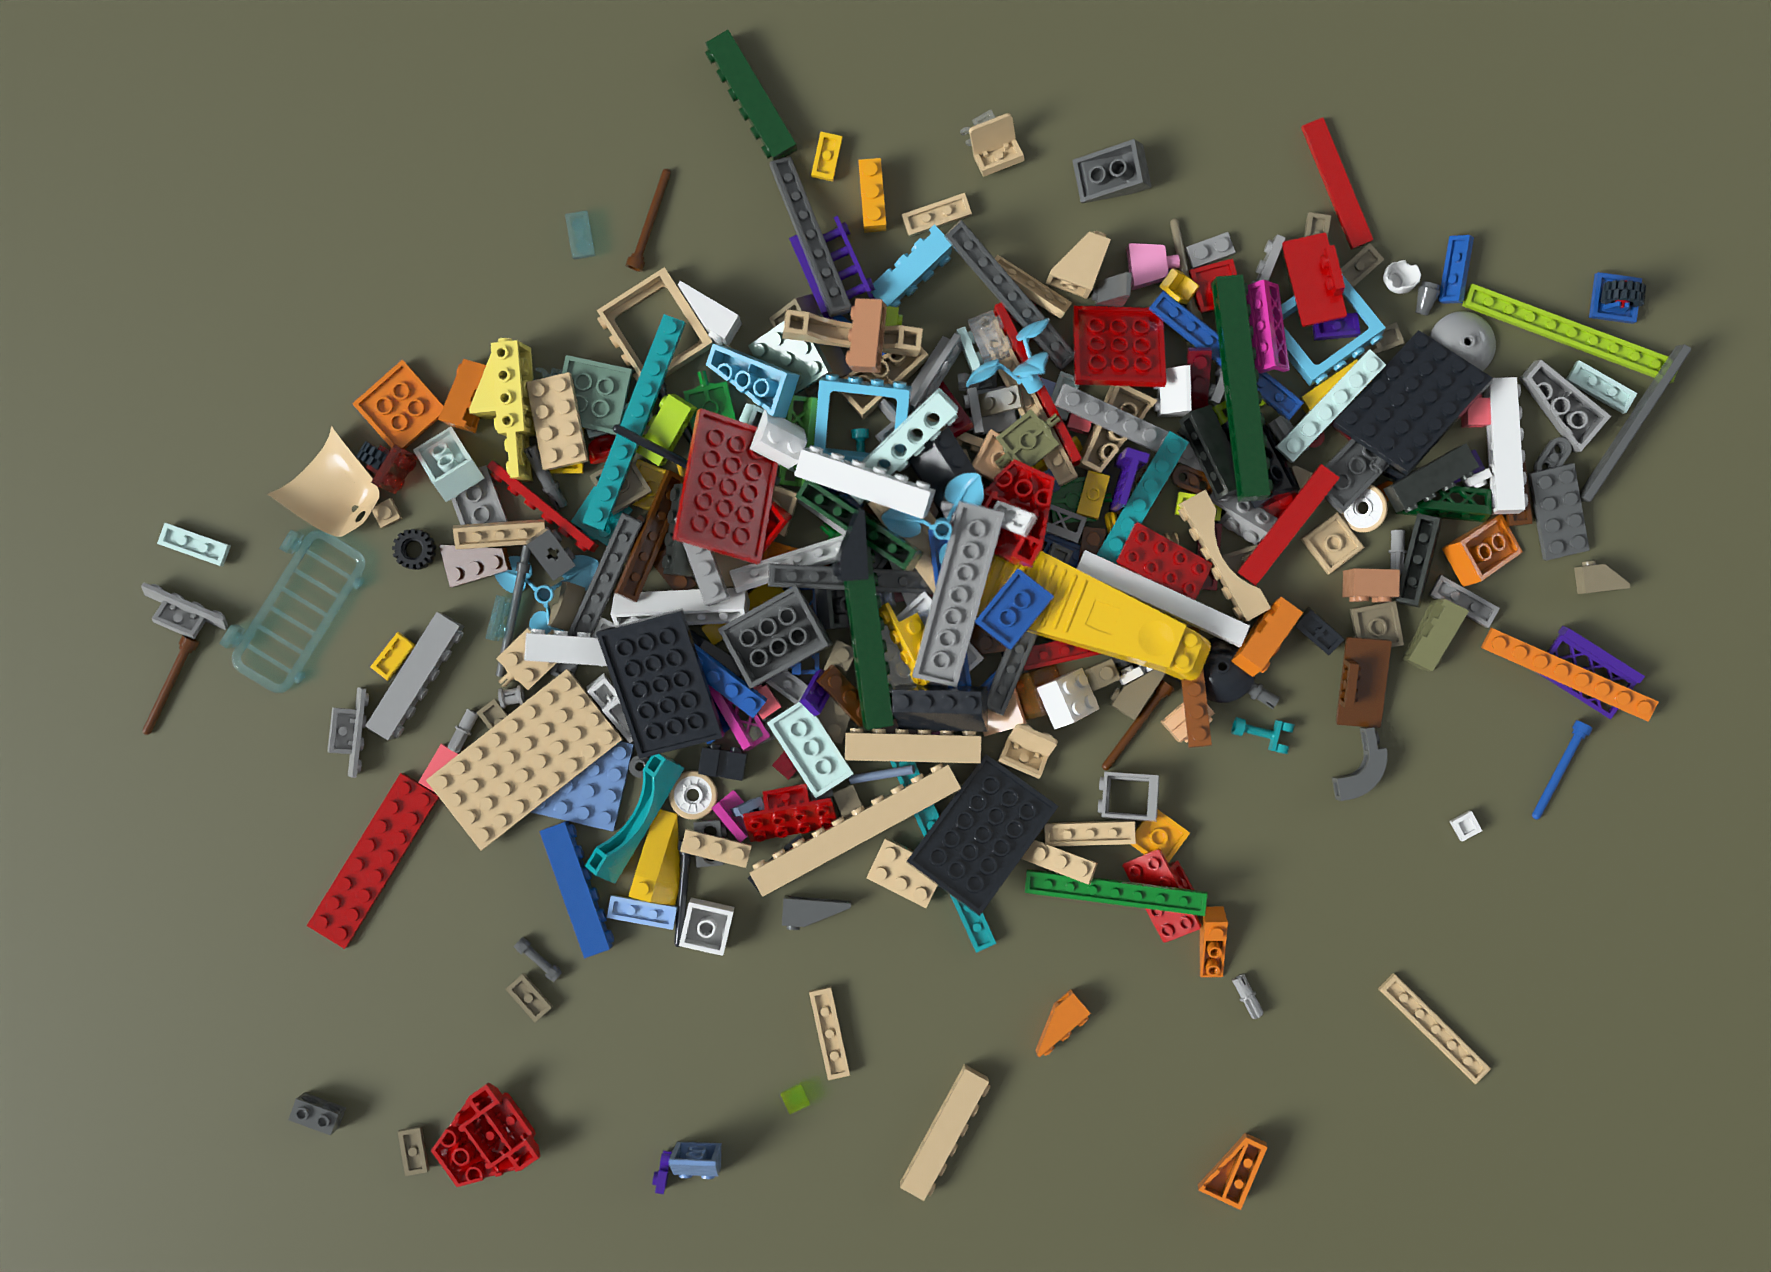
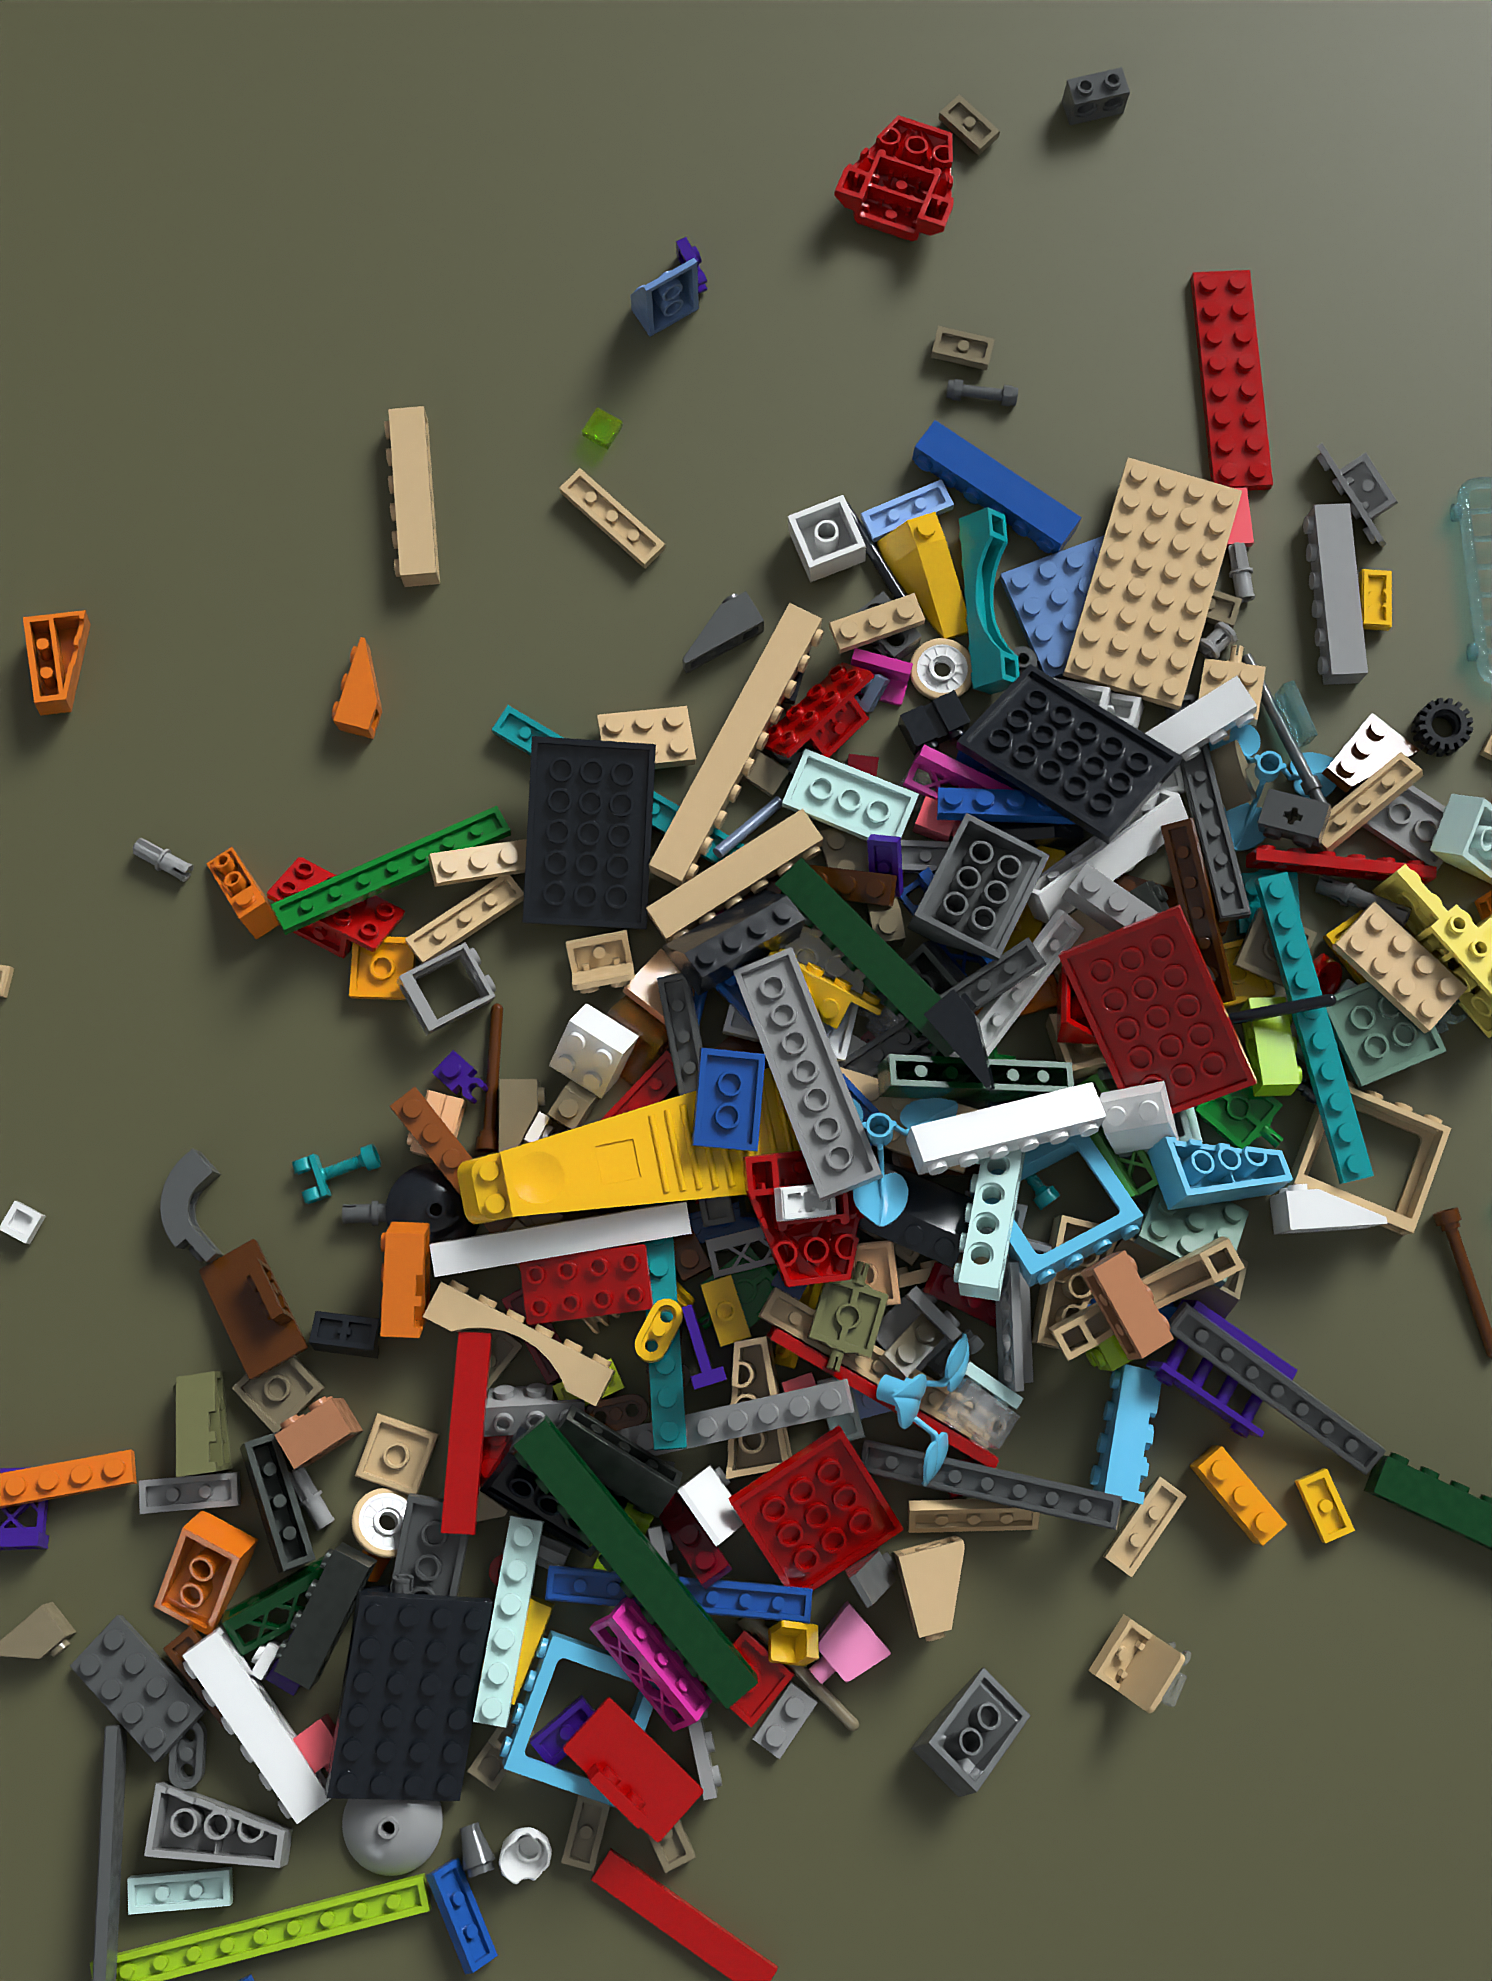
camera: 145 degrees right, 10 degrees down
(1142, 507) = (656, 1330): none -> yellow plate
(1156, 741) = (459, 1076): none -> dark purple plate

